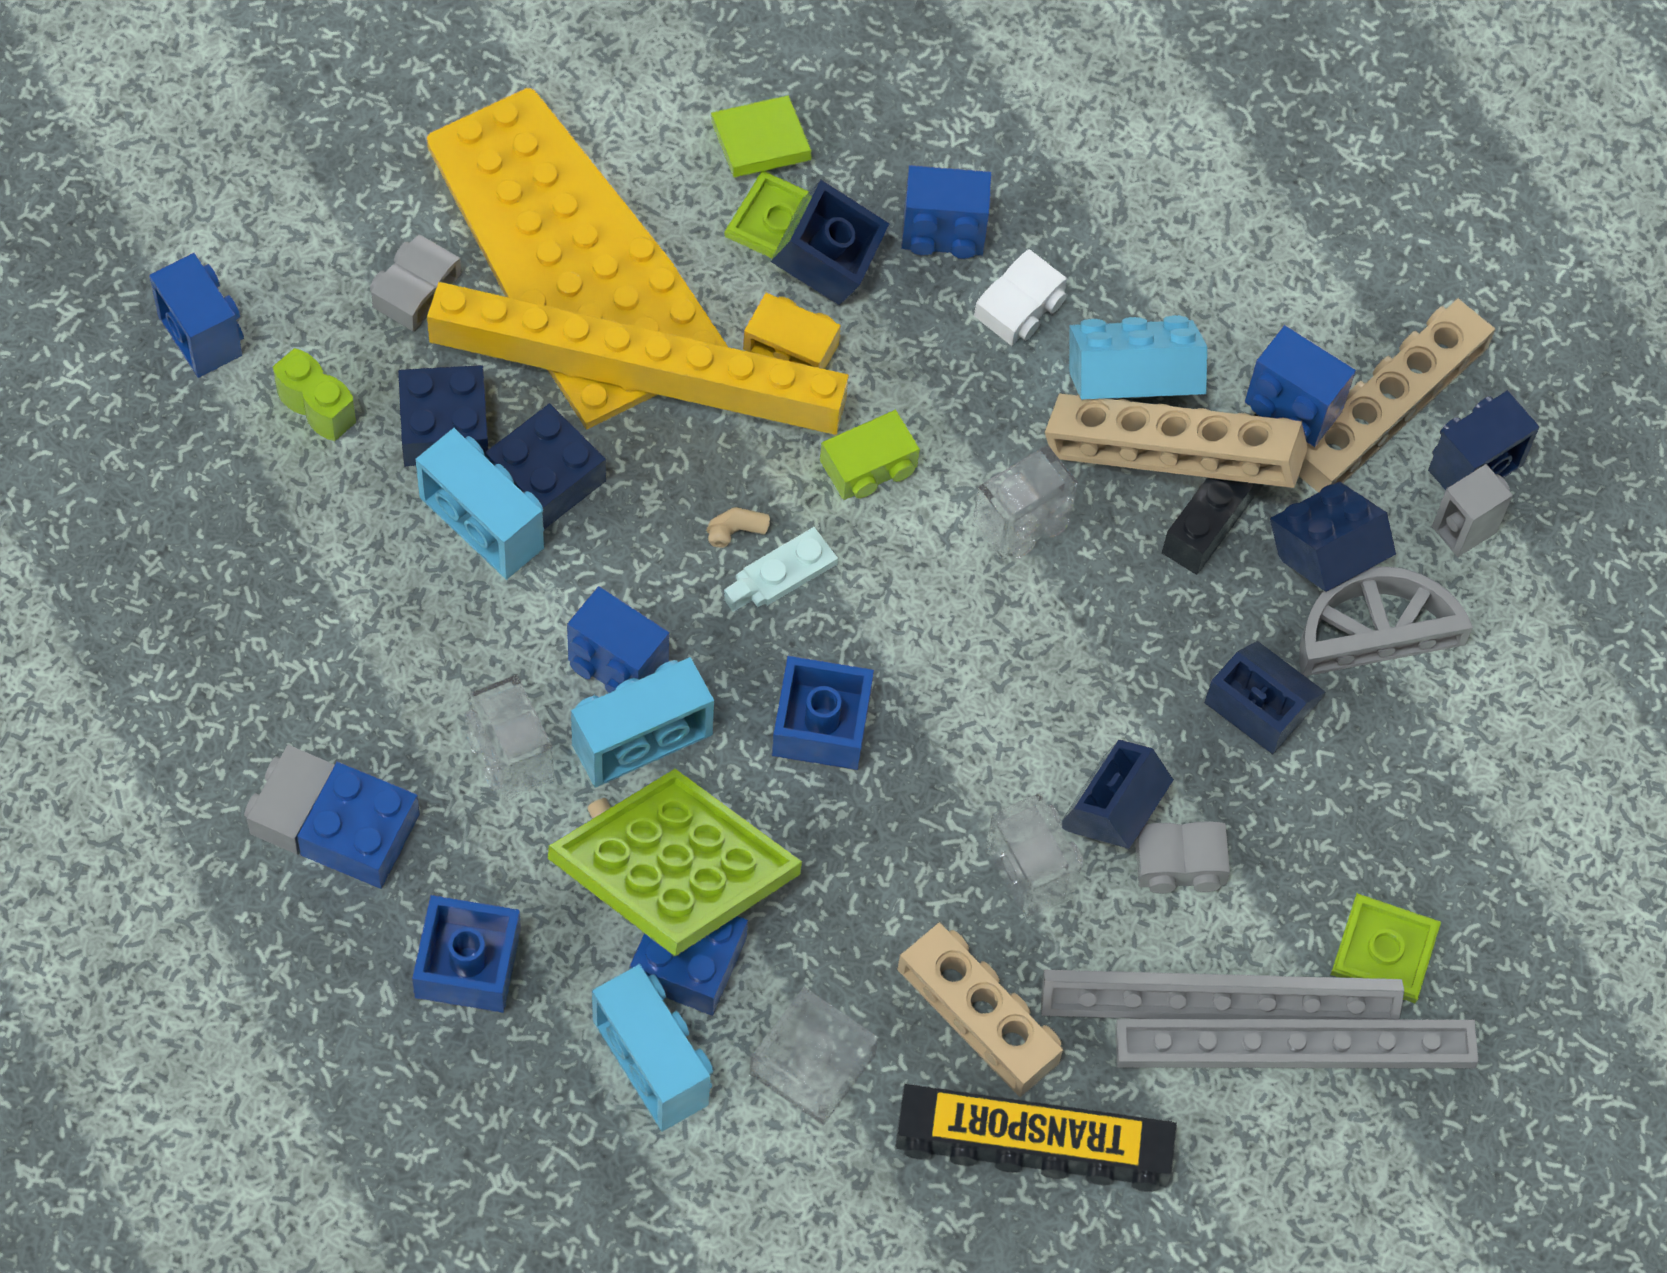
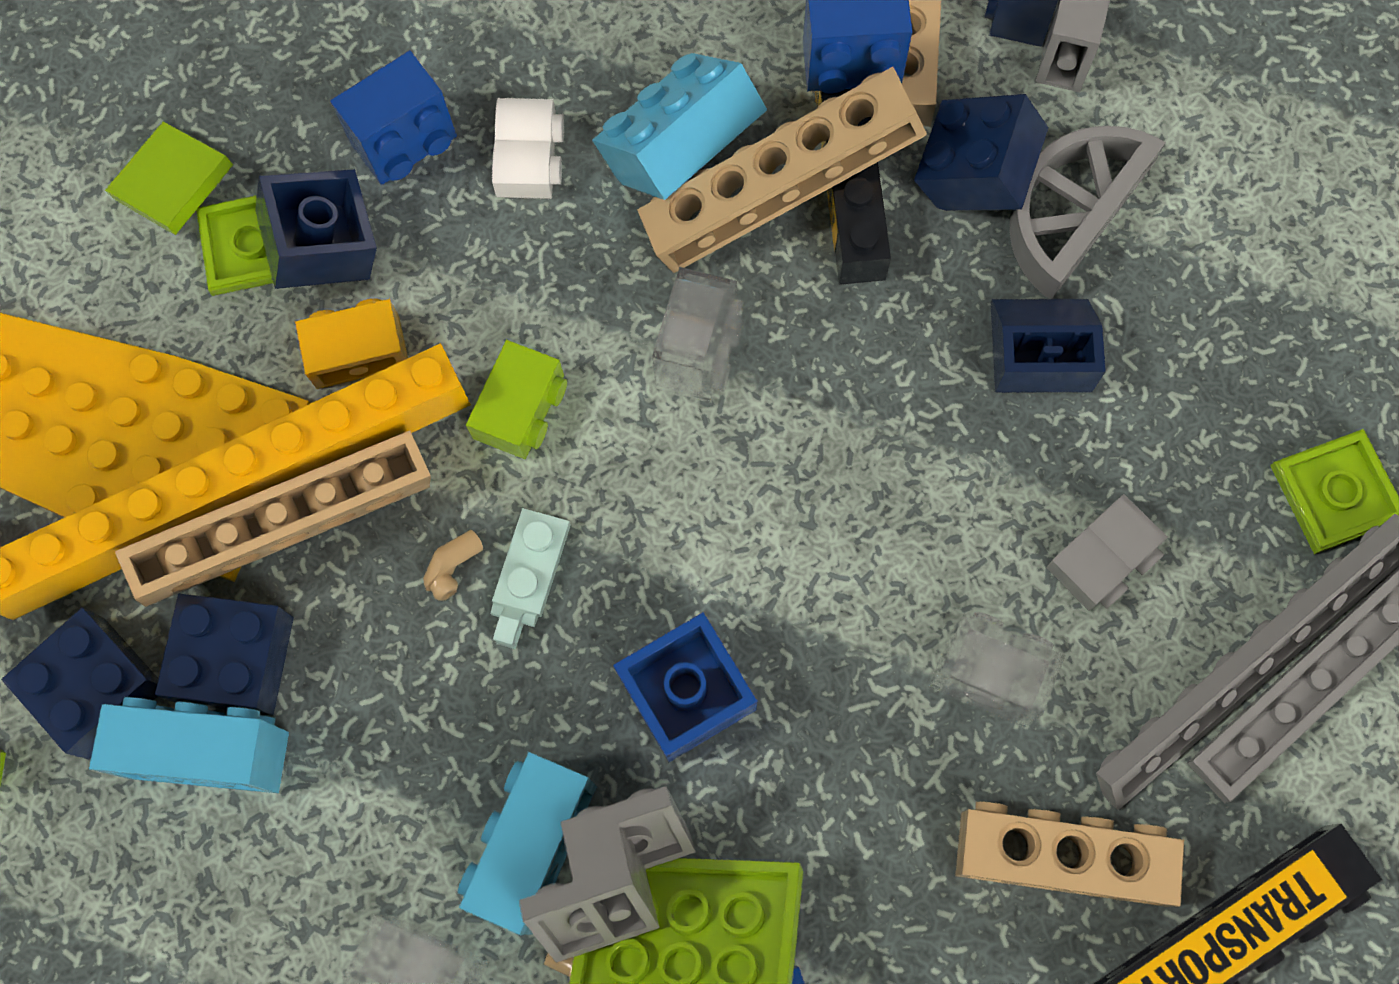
camera: 30 degrees left, 10 degrees up
(614, 641) = (441, 786): blue brick -> none
(651, 405) = (273, 519): none -> tan brick
(678, 768) = (610, 884): none -> light grey bracket
(1119, 795) = (1012, 548): dark blue slope -> none

